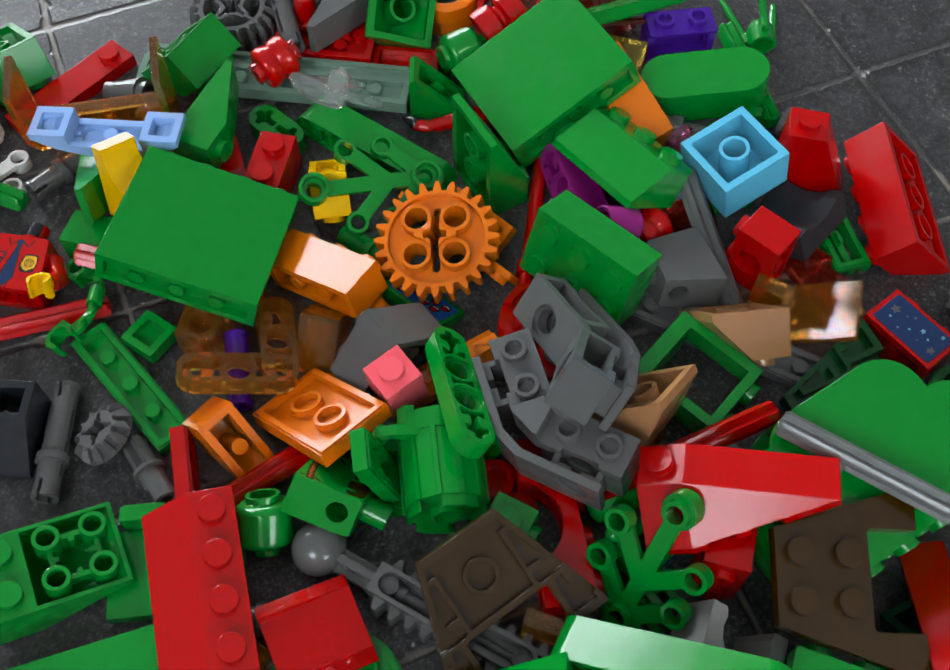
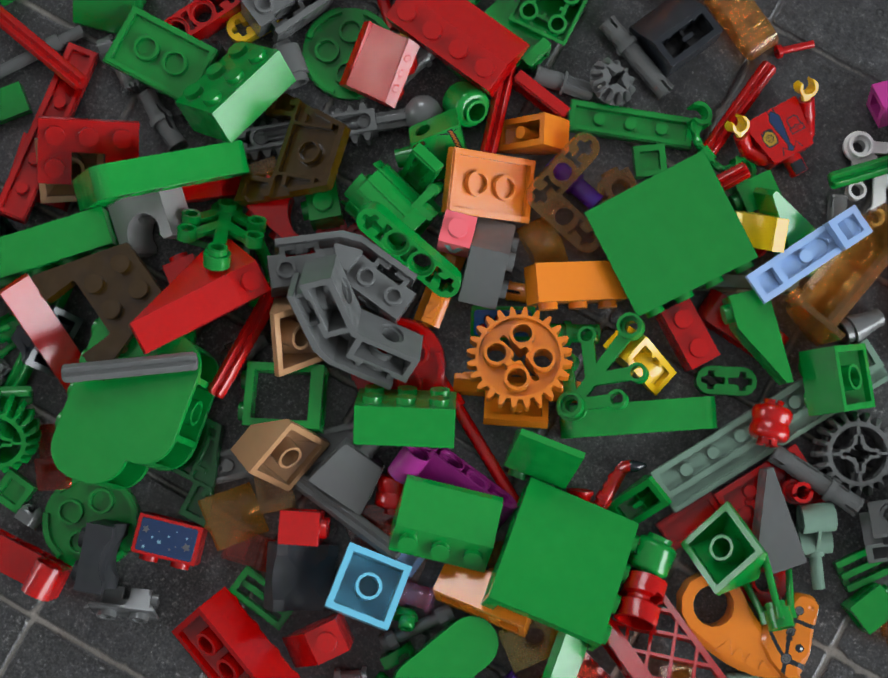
camera: 140 degrees right, 25 degrees up
(333, 89) = (708, 425): clear piece -> none

